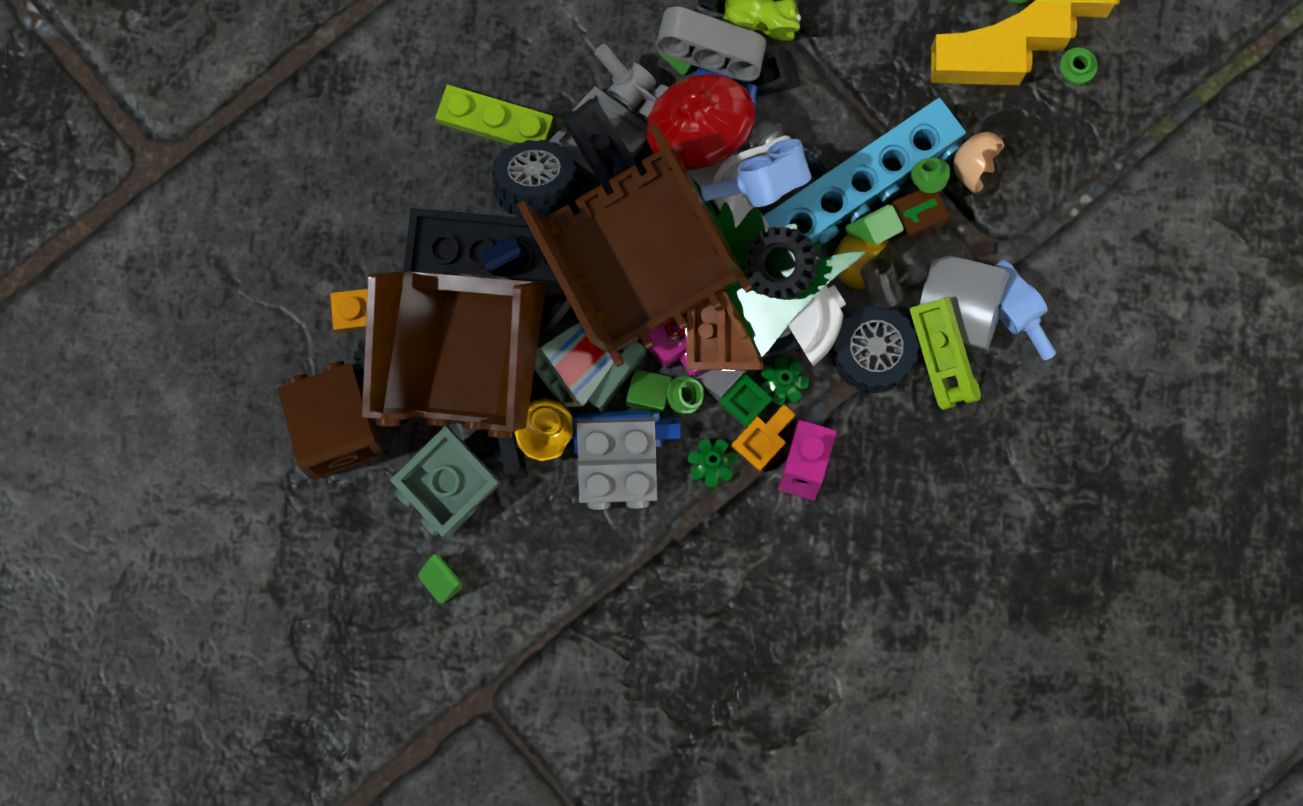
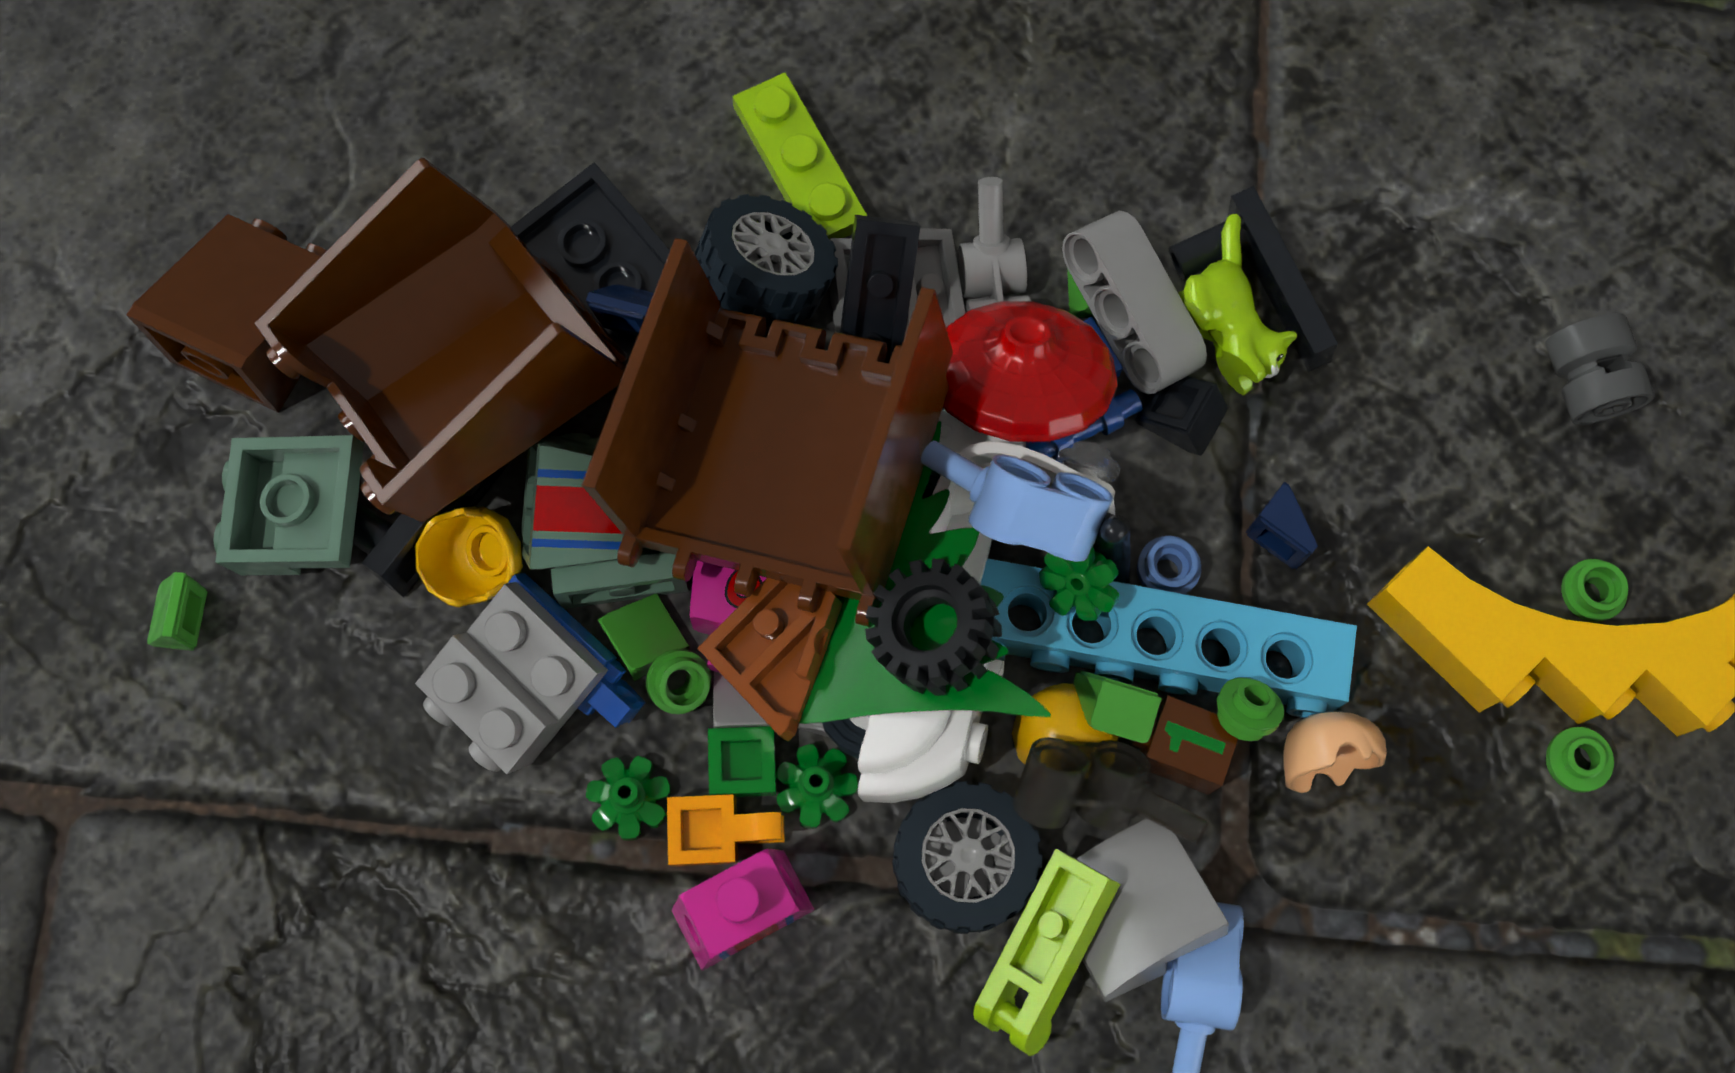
camera: 40 degrees right, 5 degrees down
(817, 189) = (1080, 585): none -> green plant
(836, 136) = (1178, 552): none -> medium blue plate
(867, 84) = (1283, 529): none -> dark blue slope

